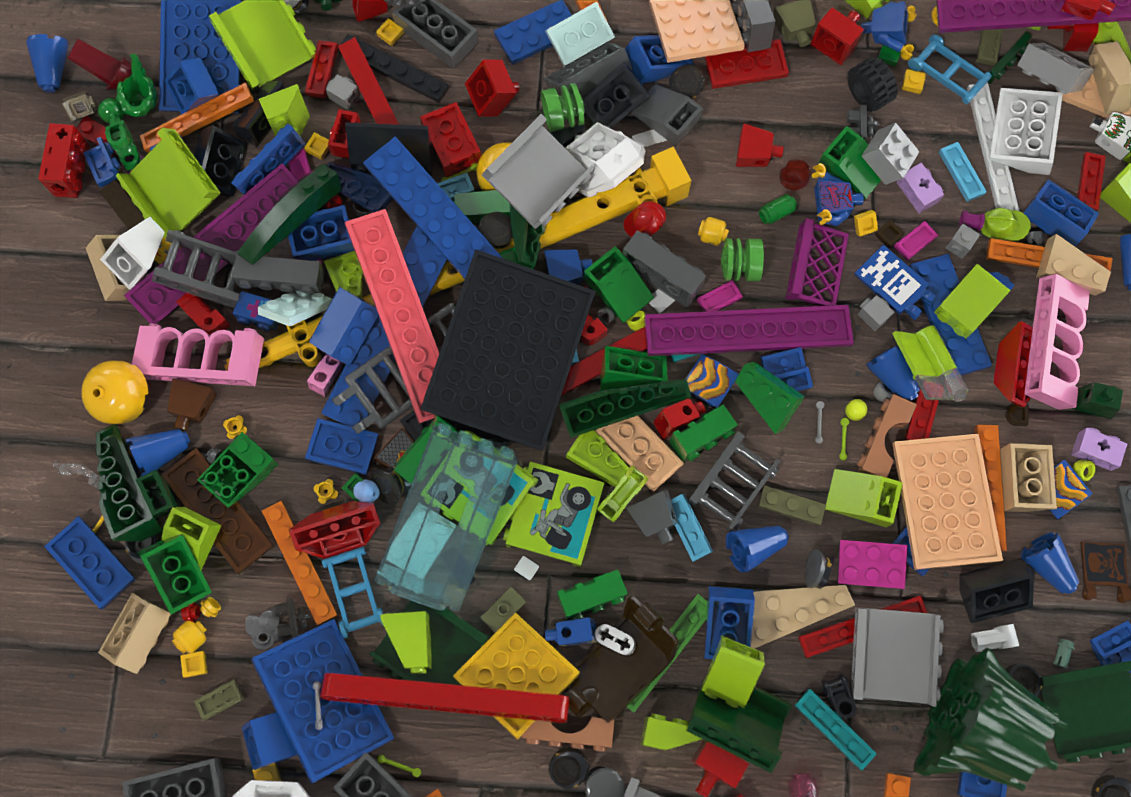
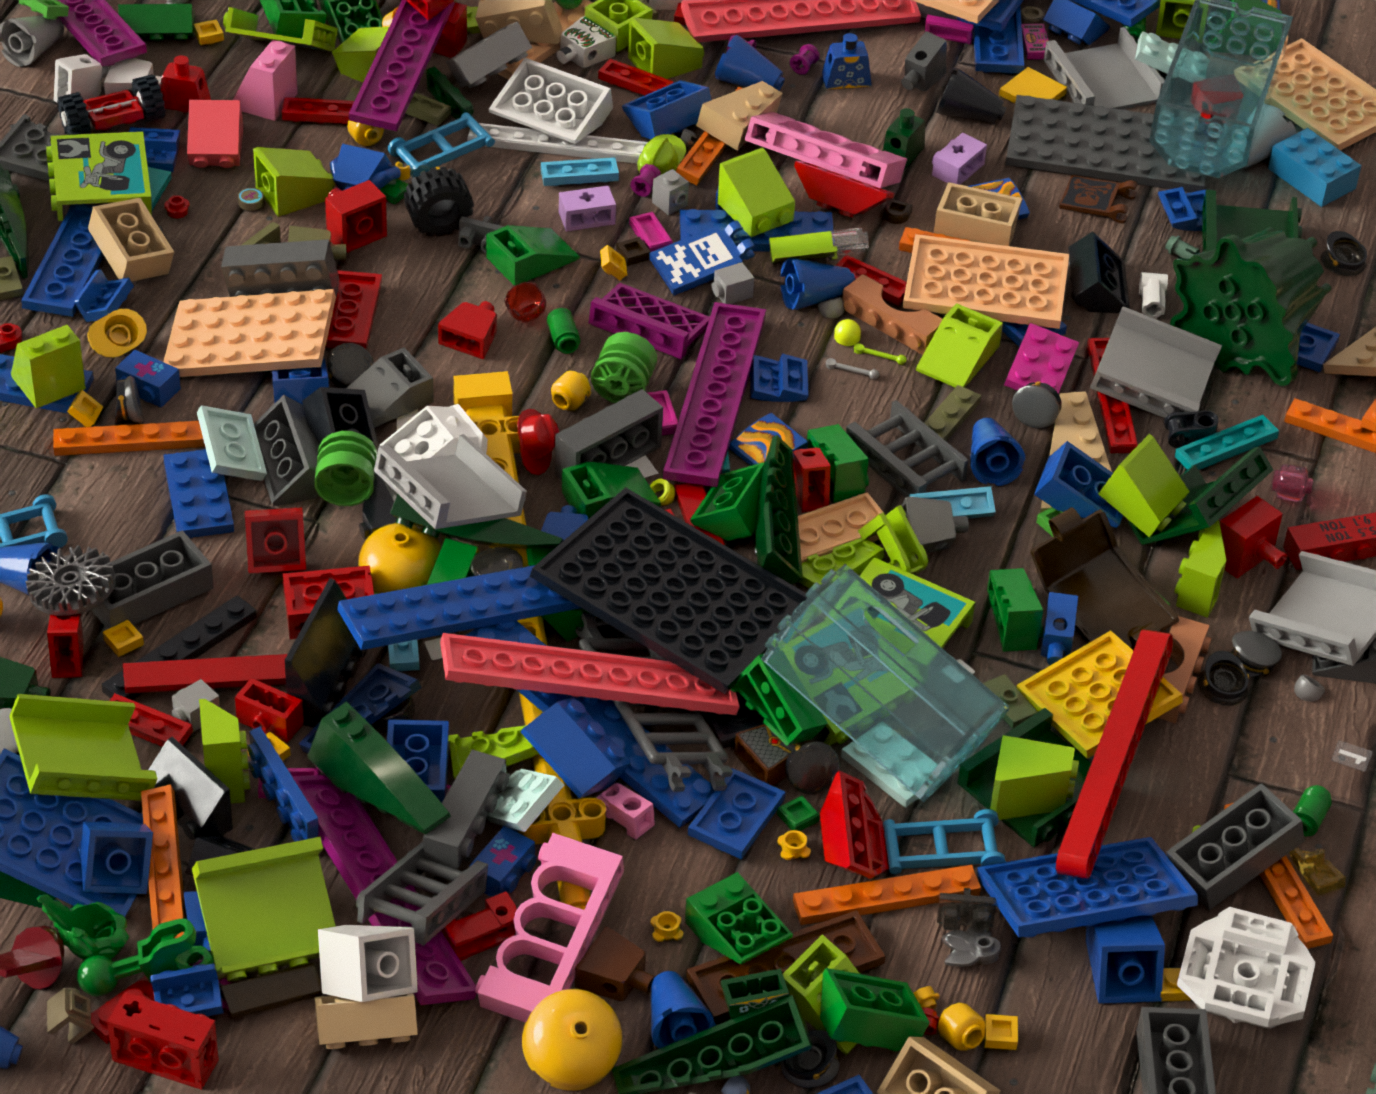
camera: 75 degrees left, 30 degrees down
(213, 454) = (704, 953): dark grey hinge -> none
(219, 700) = (1057, 1013): olive plate -> none
(317, 686) = (1122, 880): light grey hinge -> none
(366, 491) = (813, 789): light blue piece -> none
(617, 634) = (1088, 594): white beam -> none
(769, 395) = (811, 389): green wedge -> none
(833, 197) = (570, 280): blue torso -> none
(890, 153) = (538, 210): light grey brick -> none
(1051, 562) = (1073, 221): blue cone -> none
(1079, 467) = (975, 177): neon yellow piece -> none

